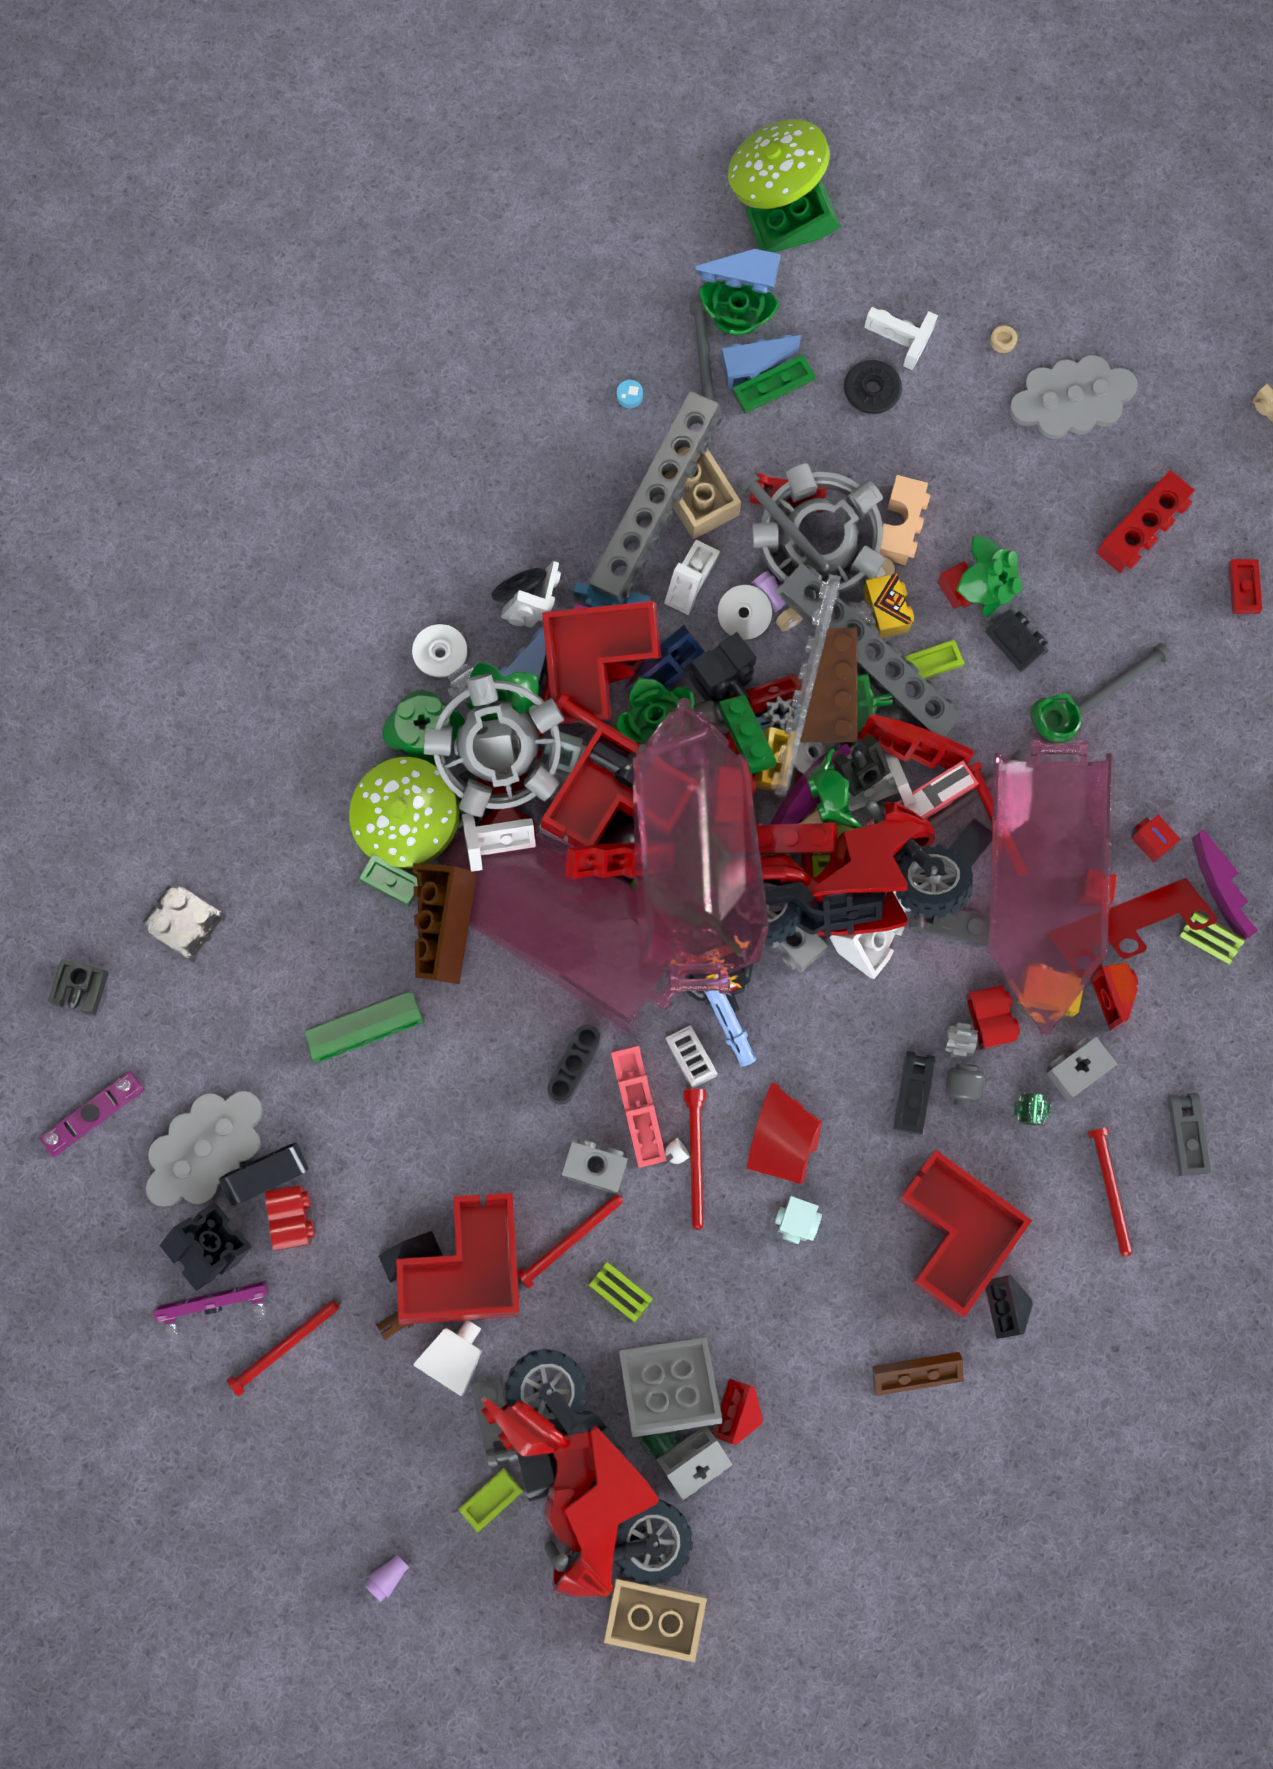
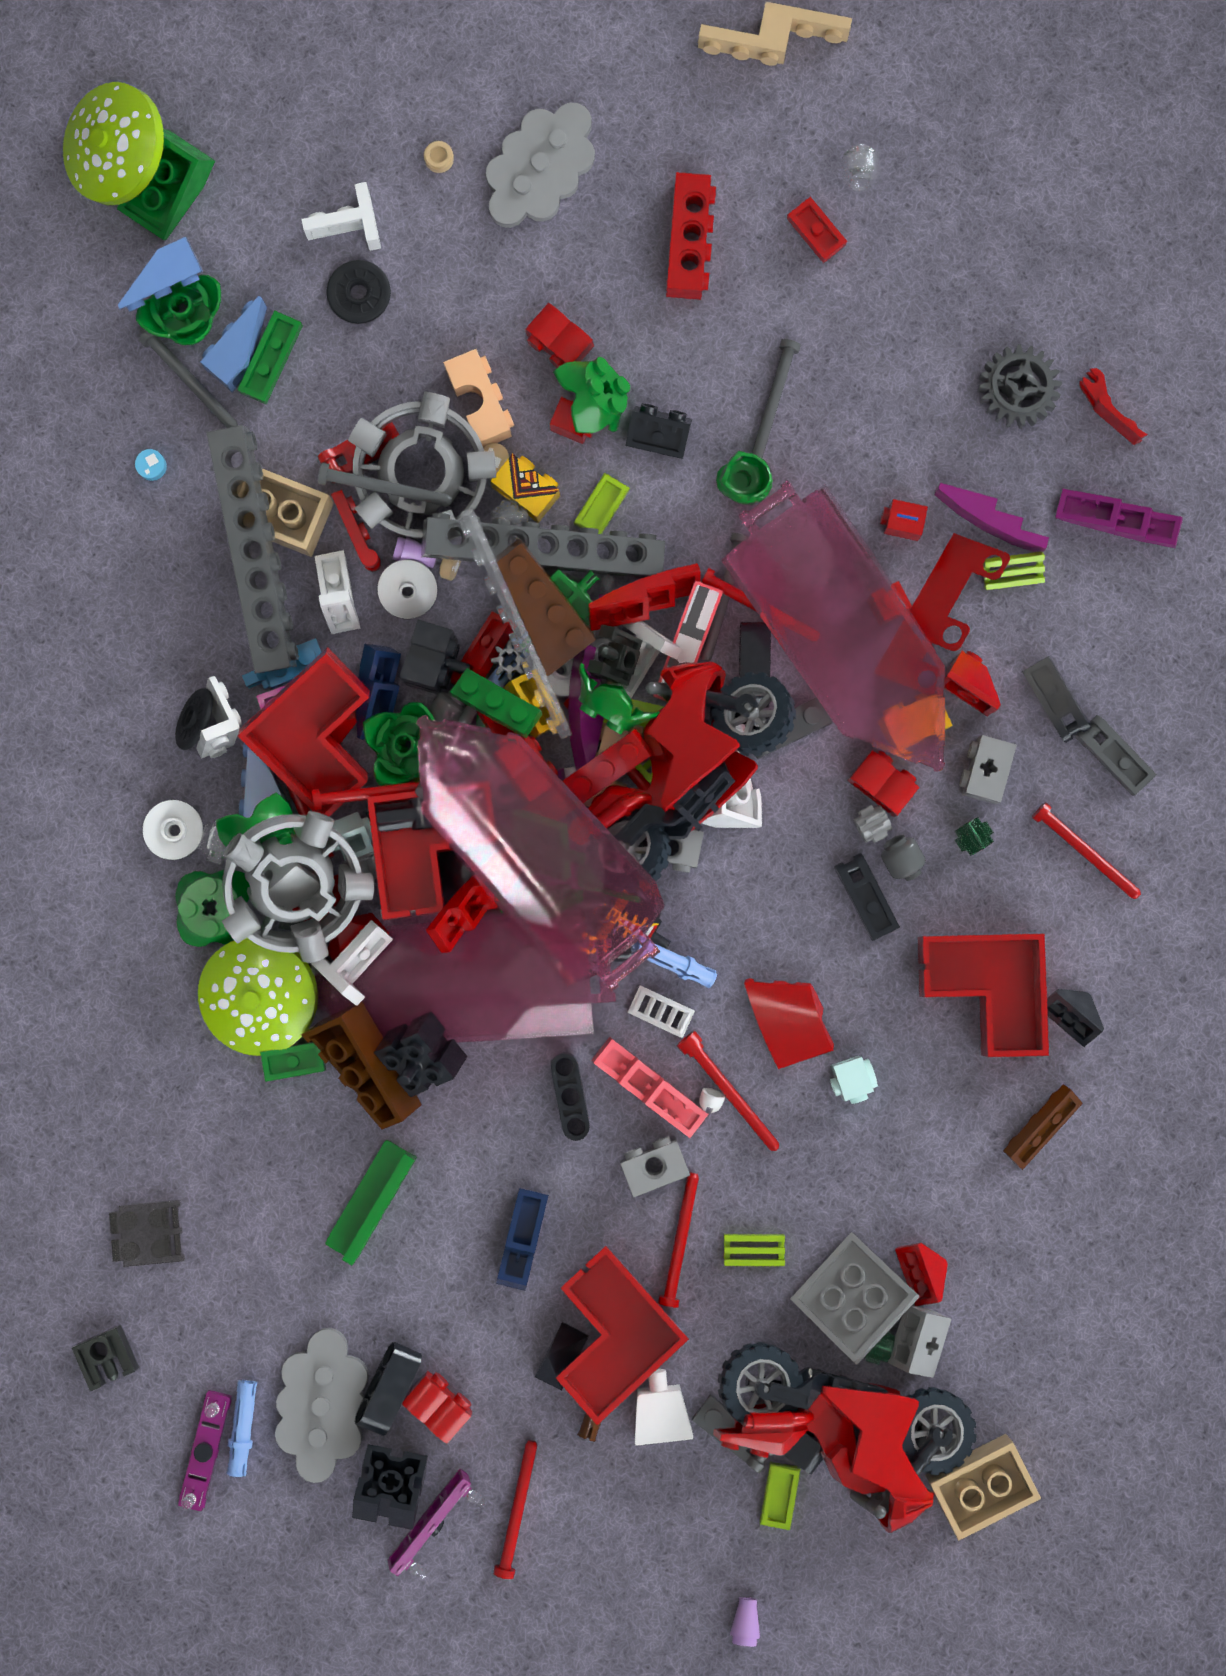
camera: 30 degrees left, 10 degrees up
(132, 1118) = (241, 1433): none -> light blue pin
(451, 1143) = (522, 1239): none -> dark blue slope
(489, 943) = (420, 1054): none -> black brick
(740, 545) = (357, 532): none -> red plate
(994, 519) = (558, 337): none -> red brick
(1174, 1055) = (1056, 698): none -> black plate

